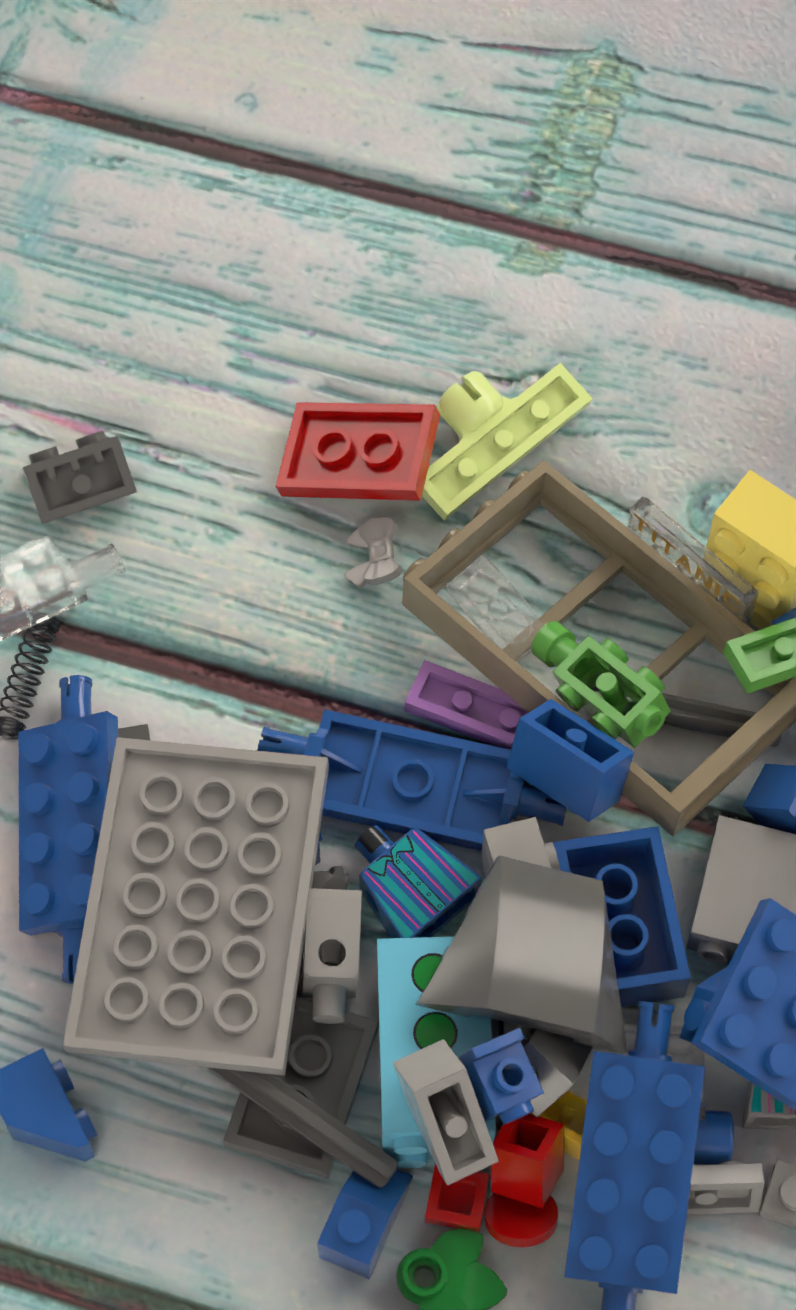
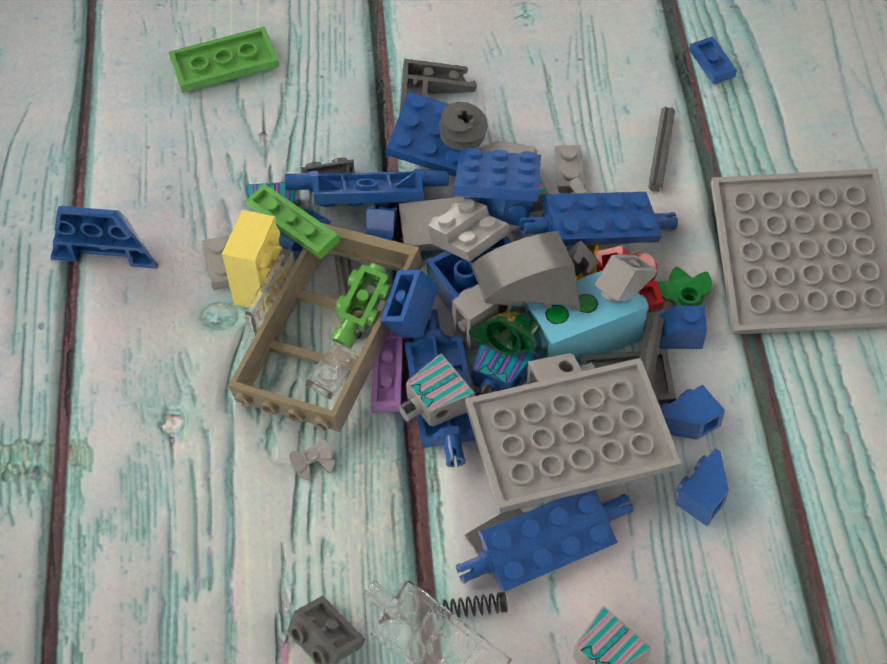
camera: 110 degrees left, 10 degrees down
(181, 1152) = (693, 413): none -> blue slope
(358, 451) = (253, 482): plate -> none
(388, 749) = (436, 393): none -> light grey torso
(441, 898) = (507, 333): none -> dark green hat
(485, 1069) = (594, 258): blue brick -> none
(496, 432) = (213, 424): yellowish green plate -> none
(687, 910) = (467, 229): none -> light grey plate

